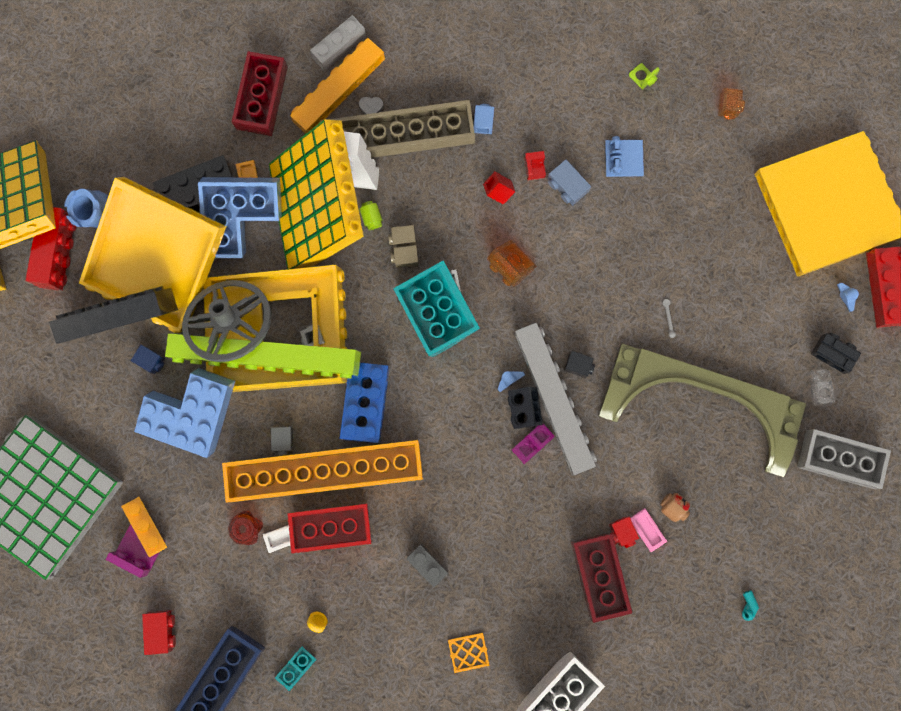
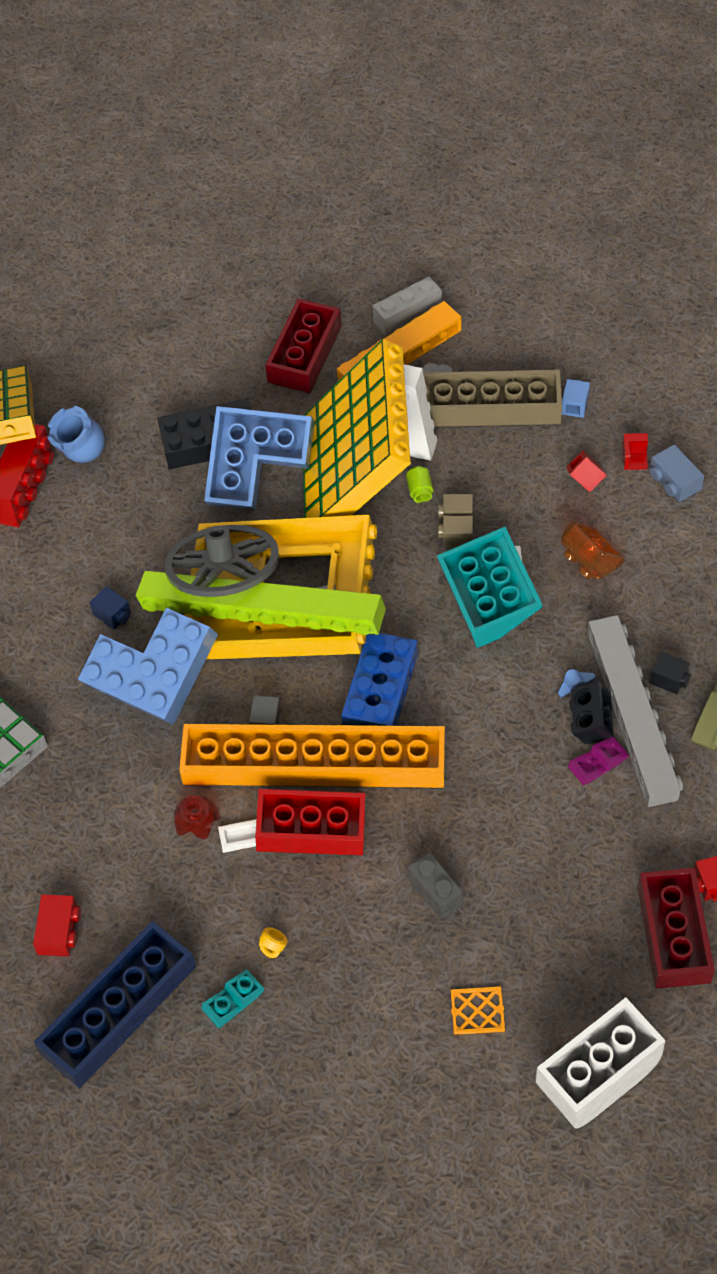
camera: 10 degrees right, 25 degrees down
(113, 314) = (81, 543): black brick -> none
(132, 555) = (49, 824): magenta bracket -> none
(144, 527) = (64, 796): light orange plate -> none
(148, 245) = (140, 486): yellow panel -> none

